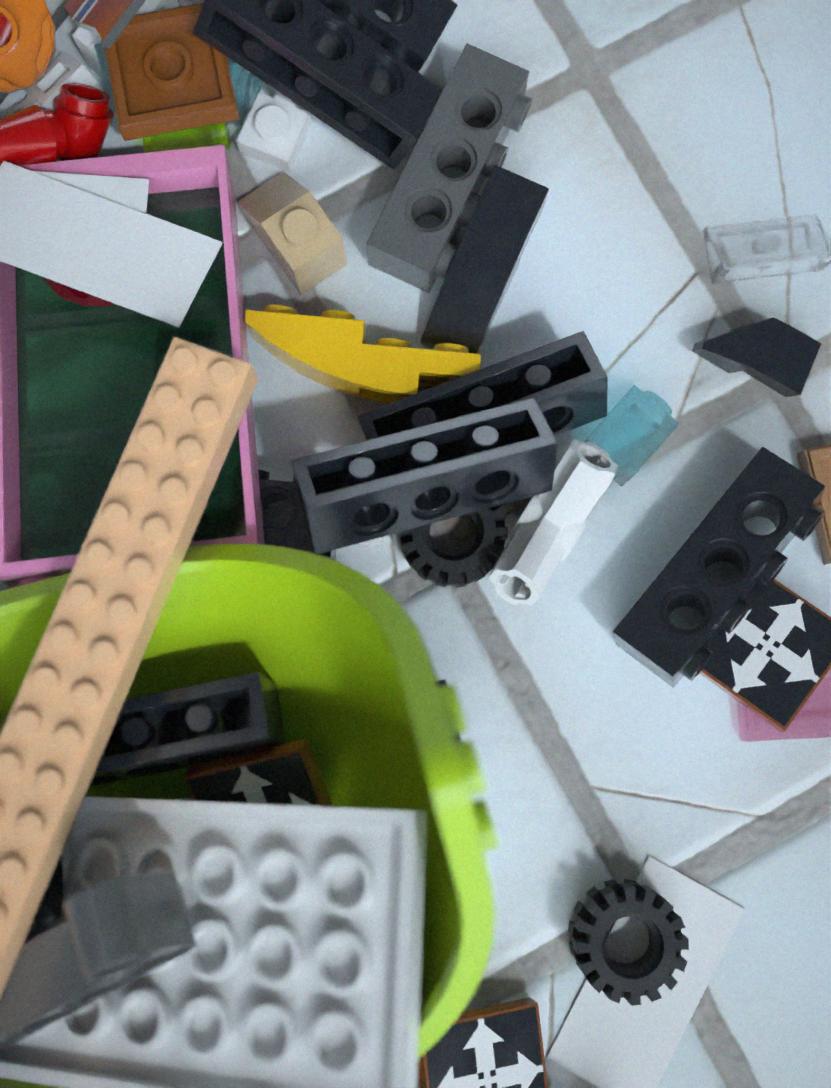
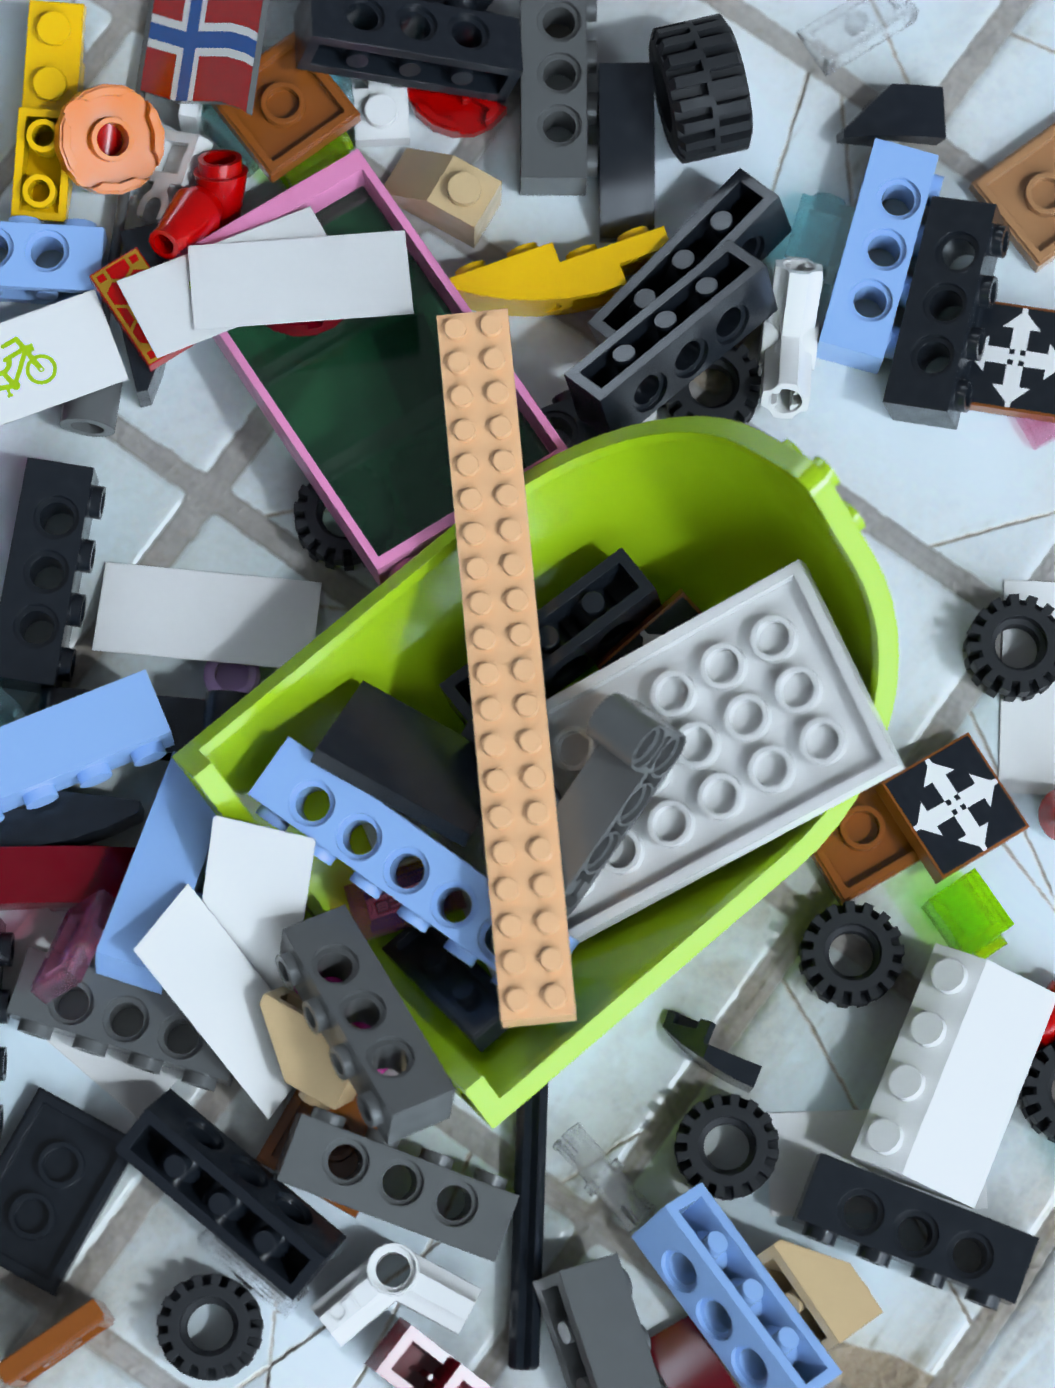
camera: 30 degrees left, 5 degrees down
(345, 161) = (455, 114): none -> red tile
(585, 233) = (701, 88): none -> black tyre
(748, 419) = (890, 174): none -> light blue brick

